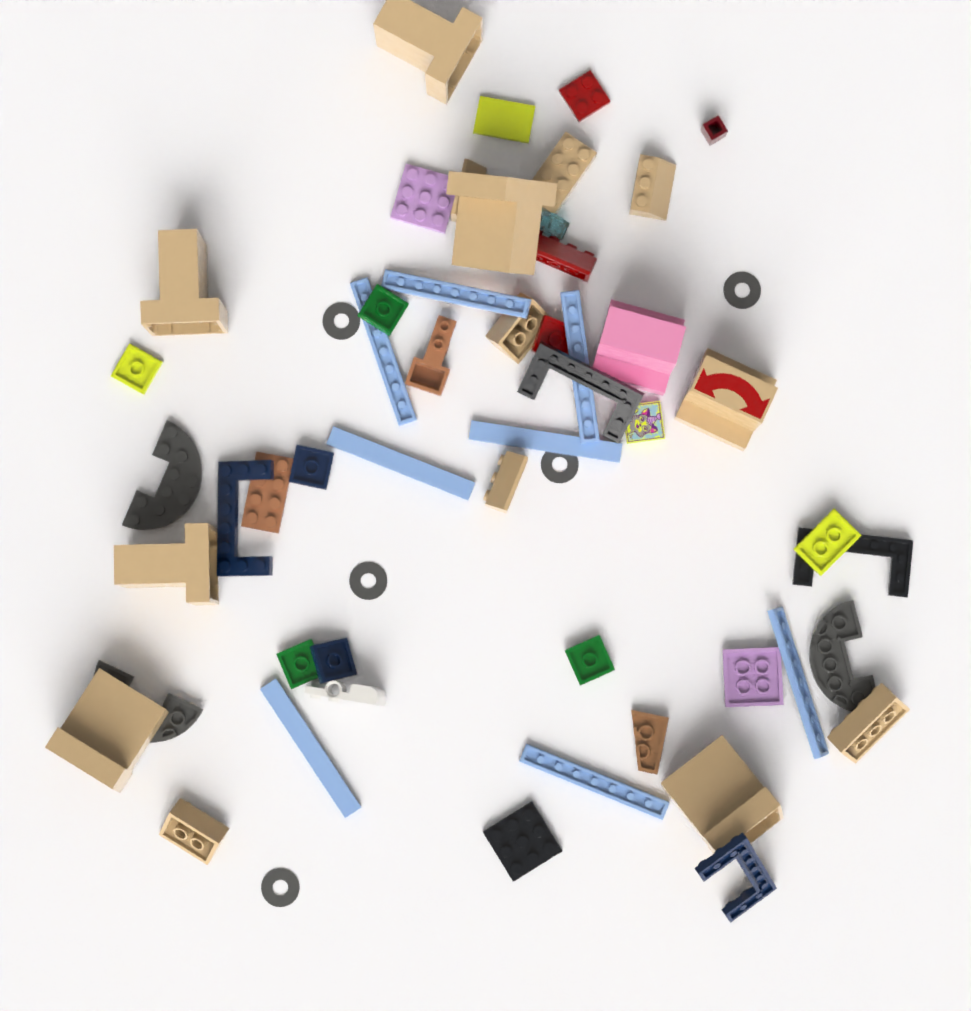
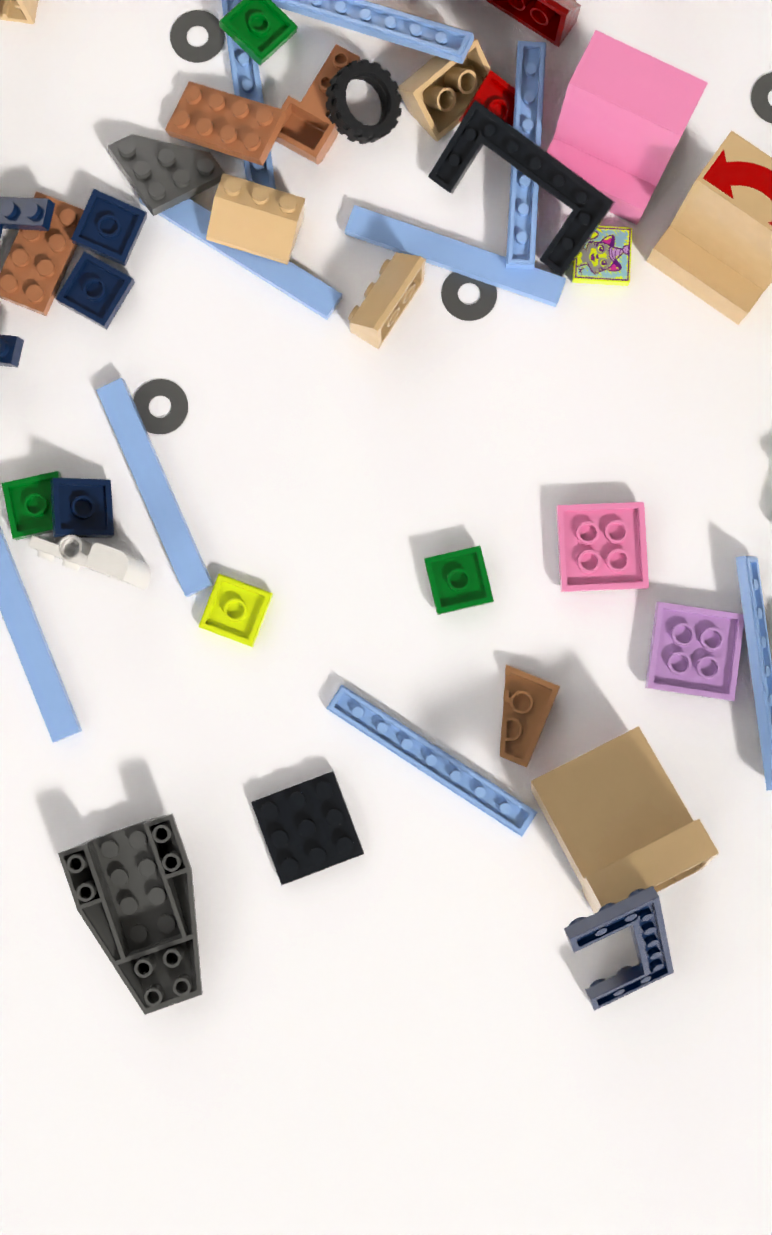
camera: 15 degrees right, 0 degrees up
(310, 511) = (95, 290): none -> dark blue plate
(340, 422) = (164, 171): none -> dark grey plate
(375, 382) = (226, 123): none -> nougat plate
(376, 636) = (154, 487): none -> light blue tile
(409, 445) = (255, 218): none -> tan slope
(426, 913) = (141, 908): none -> dark grey wedge
(446, 708) = (235, 610): none -> neon yellow tile
(482, 348) = (387, 92): none -> black tyre
(679, 619) = (602, 547): none -> bright pink plate

